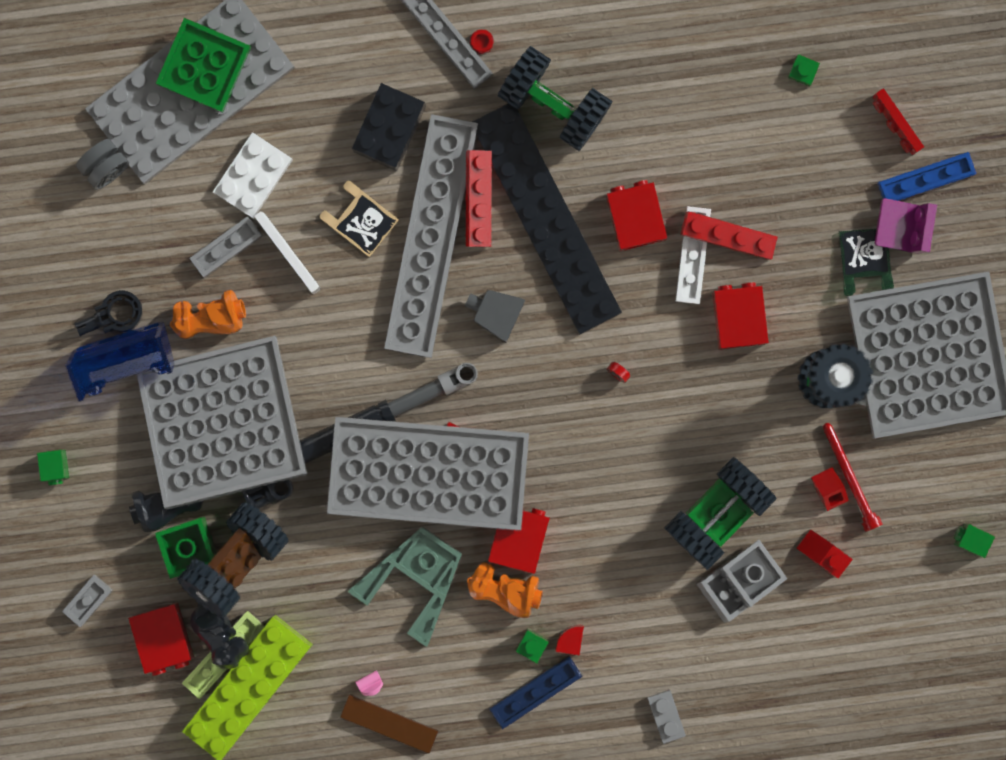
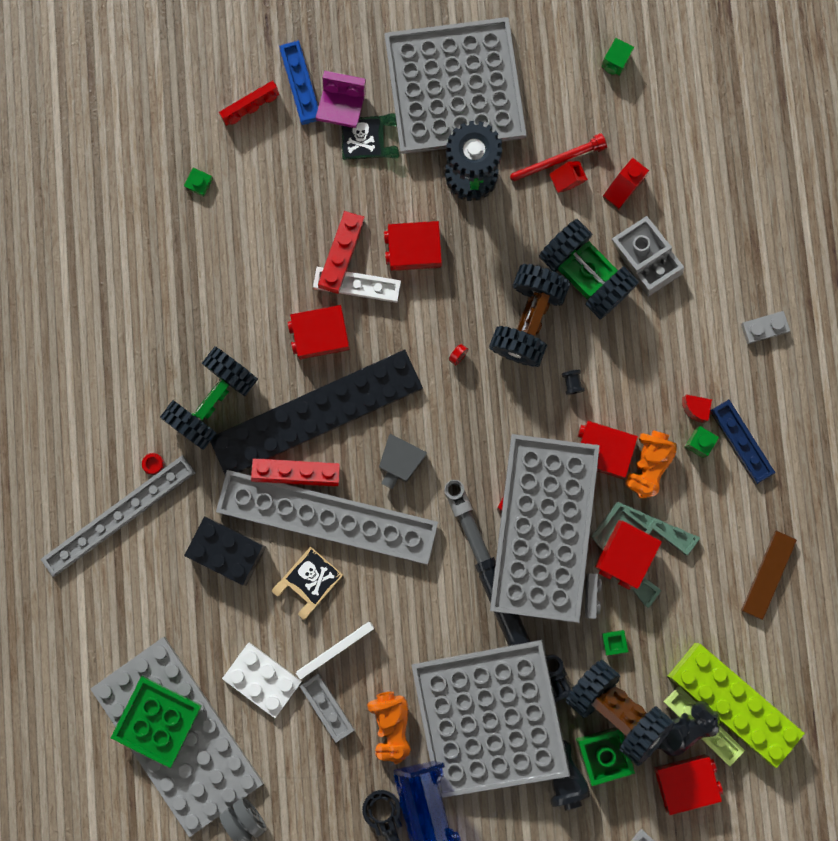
camera: 90 degrees left, 5 degrees down
(308, 555) = (614, 642): none -> green plate
(347, 530) = (593, 586): none -> light grey plate
(370, 684) = (733, 590): bright pink plate -> none
(402, 565) = (627, 555): none -> red brick
(593, 501) = (573, 382): none -> black bush
(695, 462) = (543, 289): none -> black plate

